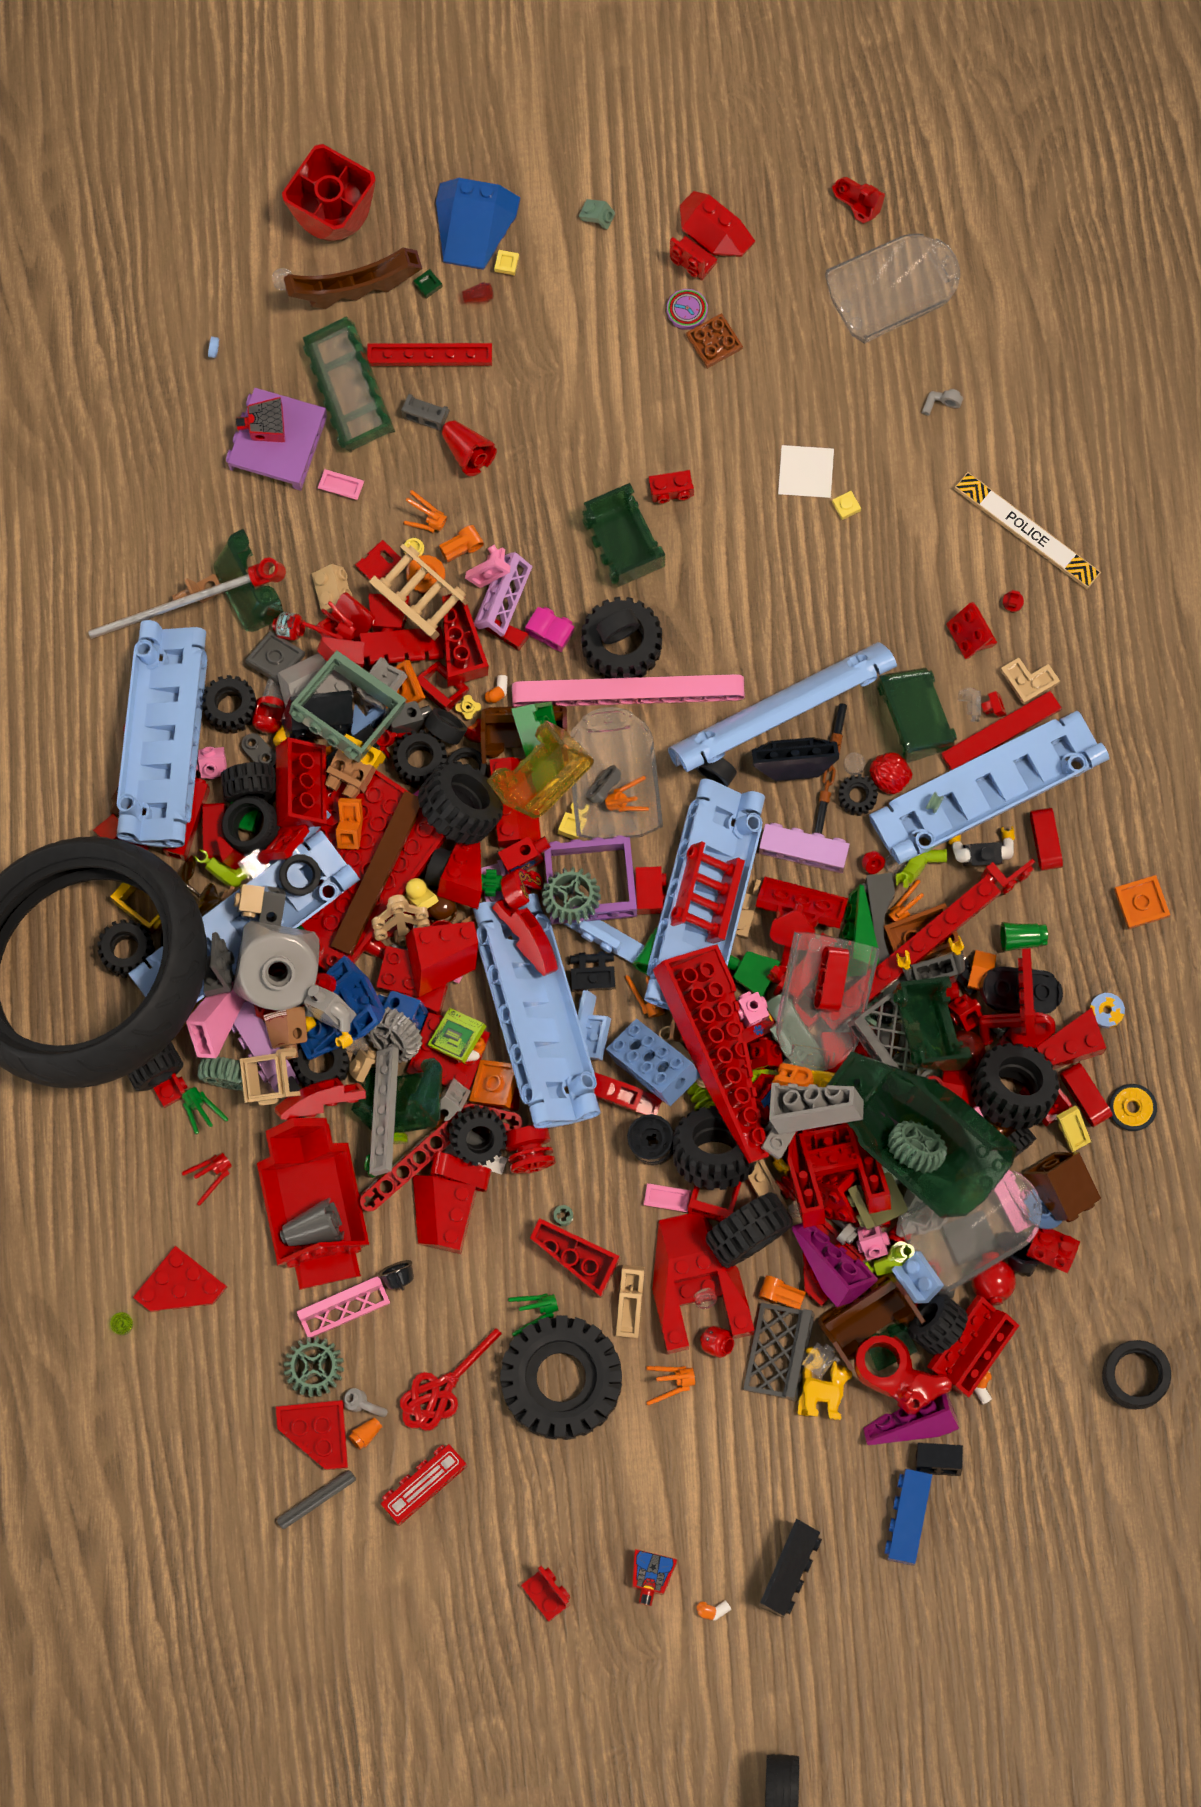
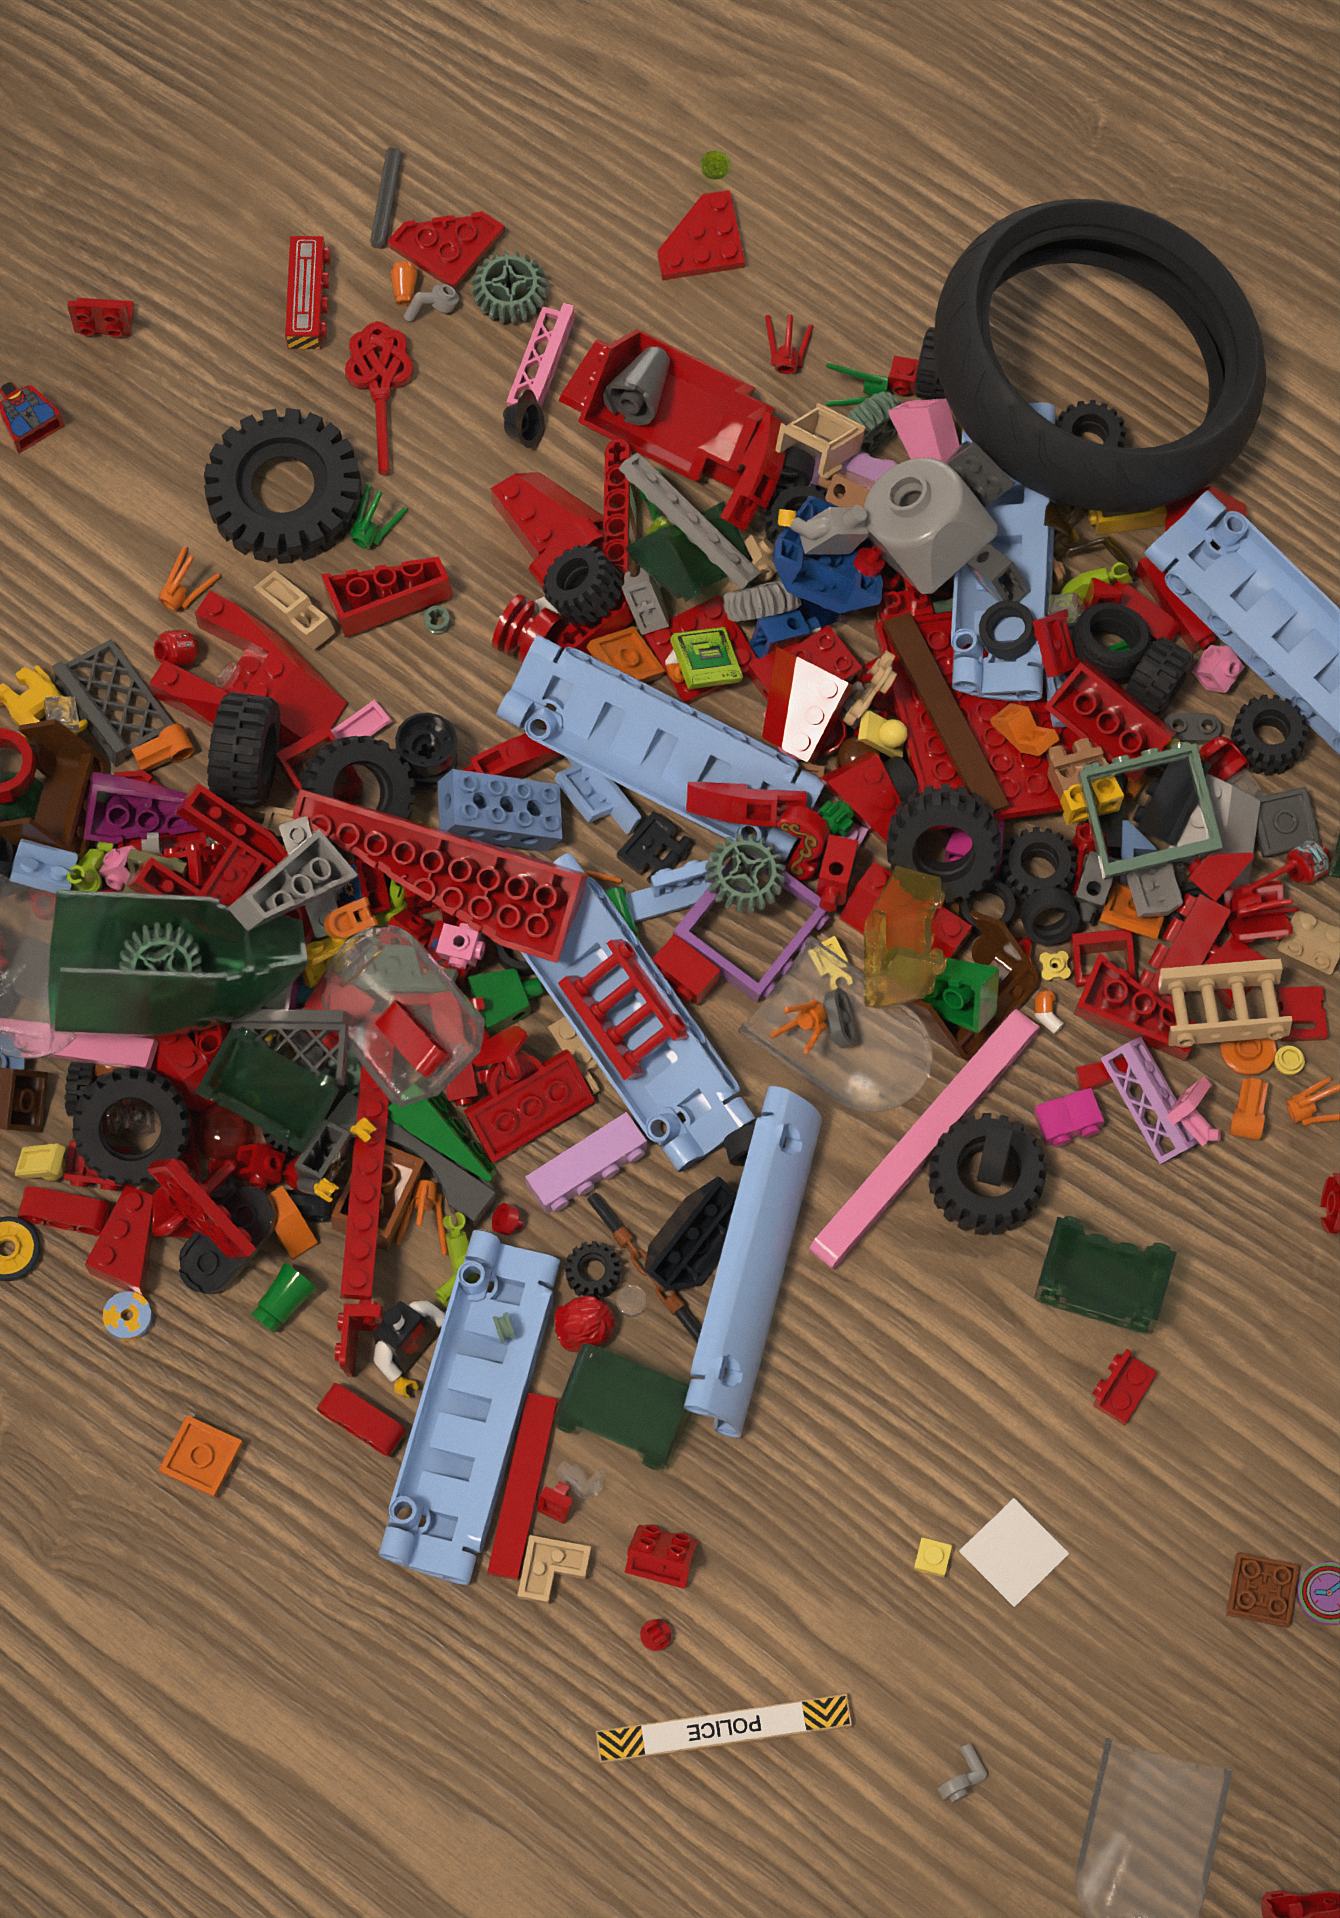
camera: 130 degrees right, 5 degrees down
(249, 900) = (1023, 550): tan brick -> none

